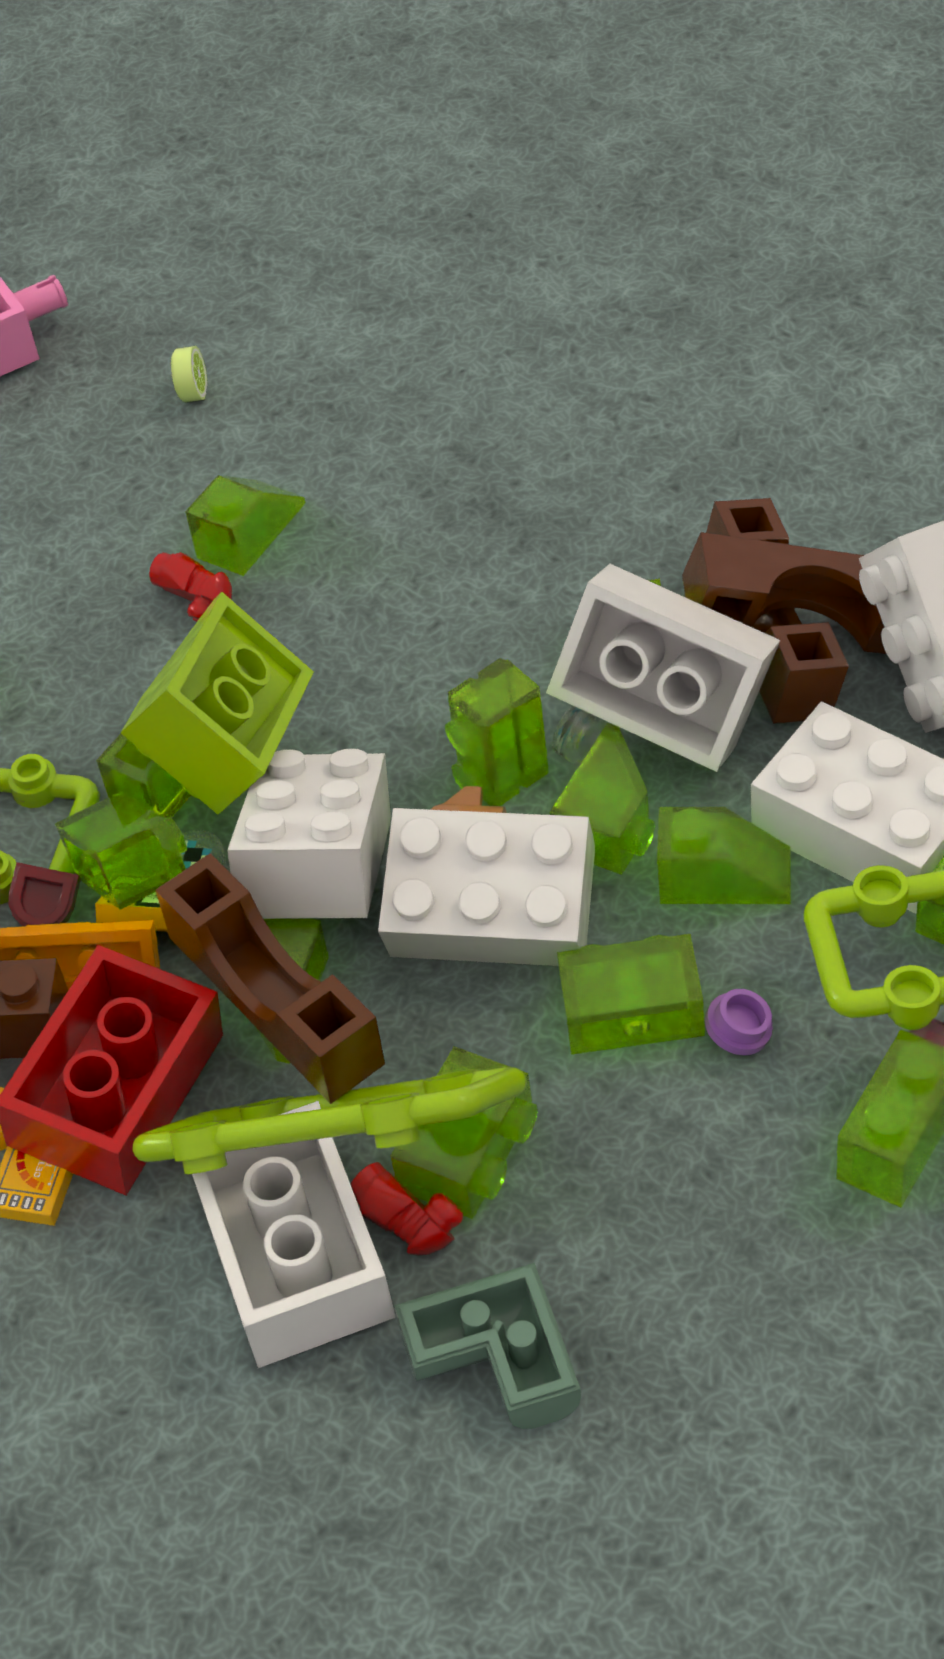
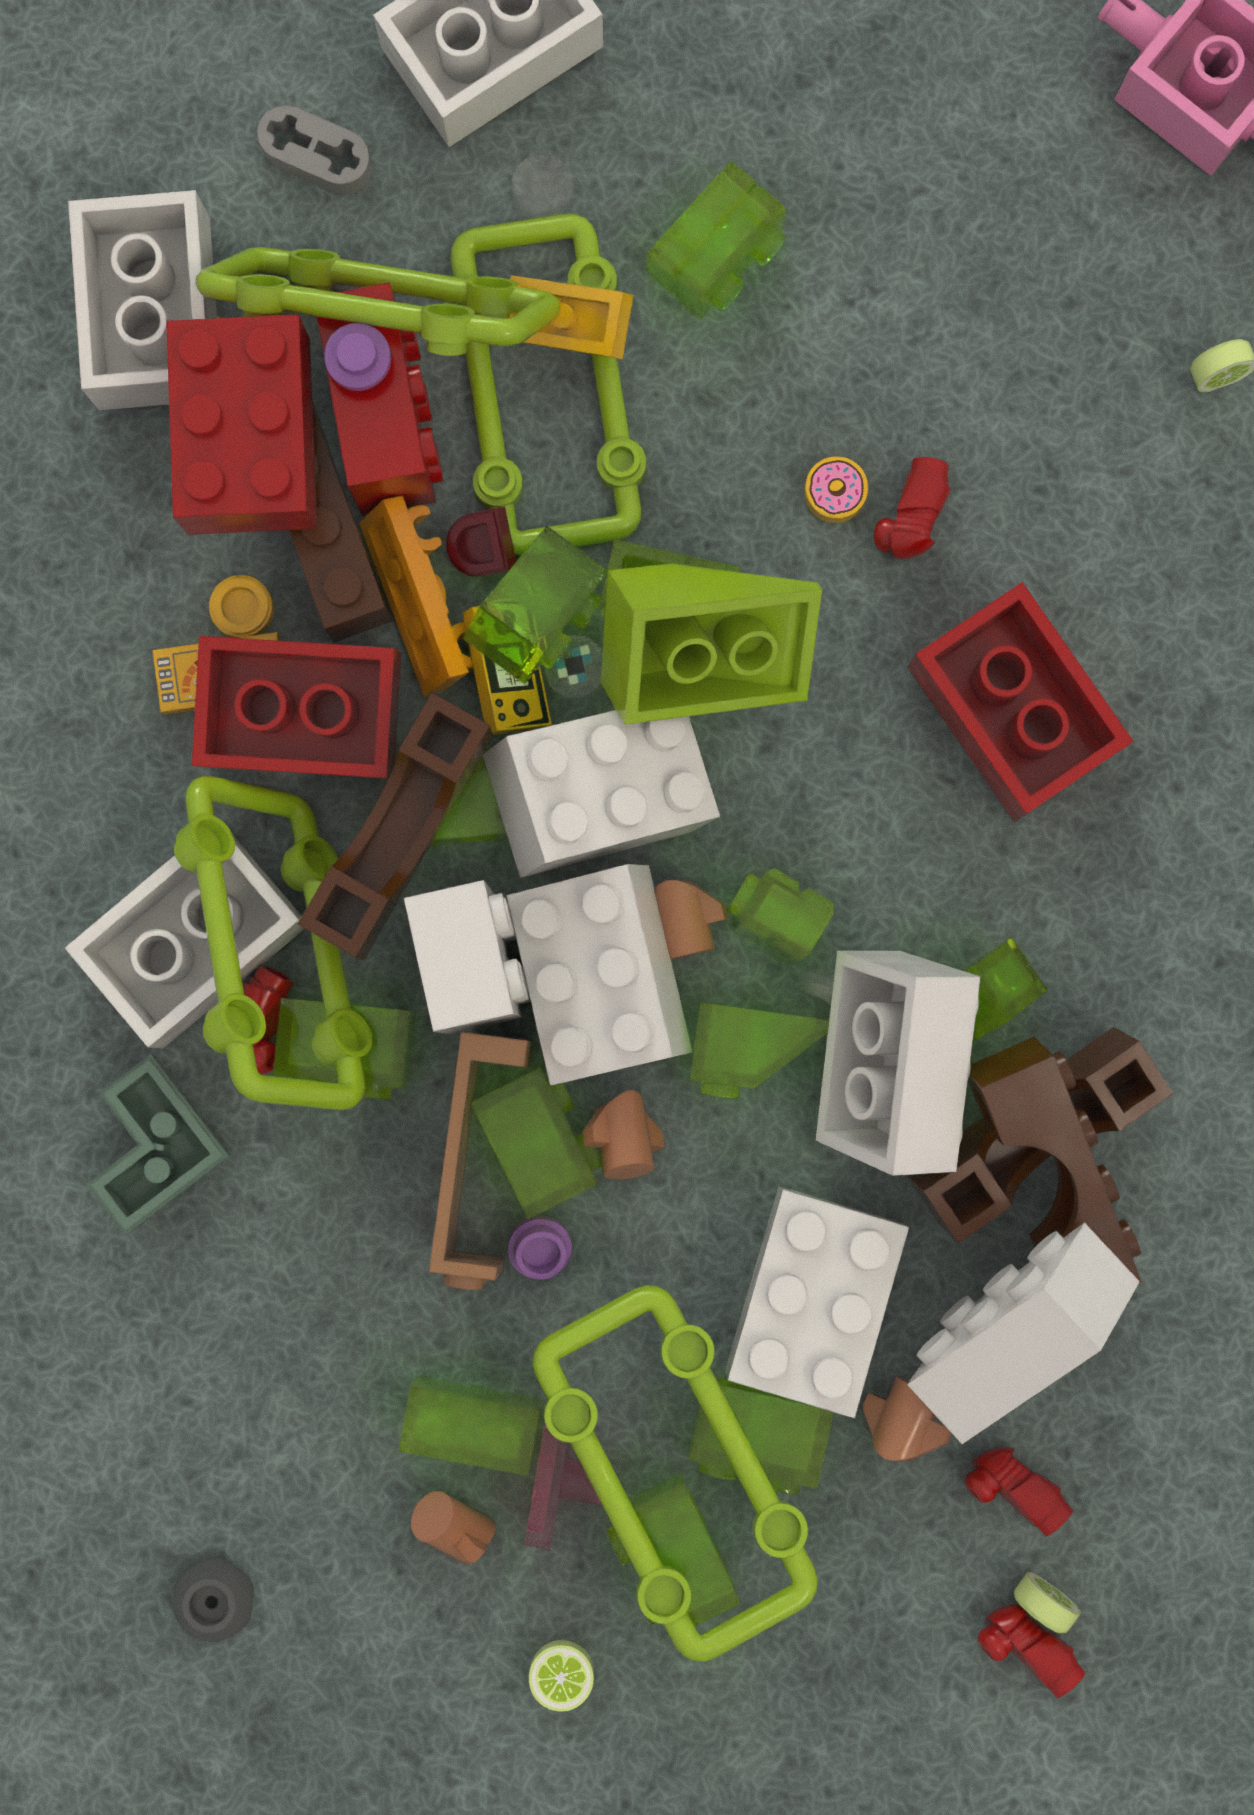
camera: 65 degrees right, 35 degrees up
(145, 639) = (835, 489): none -> tile
(239, 521) = (1026, 523): clear neon green slope -> none
(392, 542) = (1018, 702): none -> red brick
(424, 958) = (465, 957): none -> white brick
(618, 1040) = (462, 1268): none -> medium nougat panel
(654, 915) = (624, 1136): none -> nougat piece
(719, 859) = (714, 1178): clear neon green slope -> none

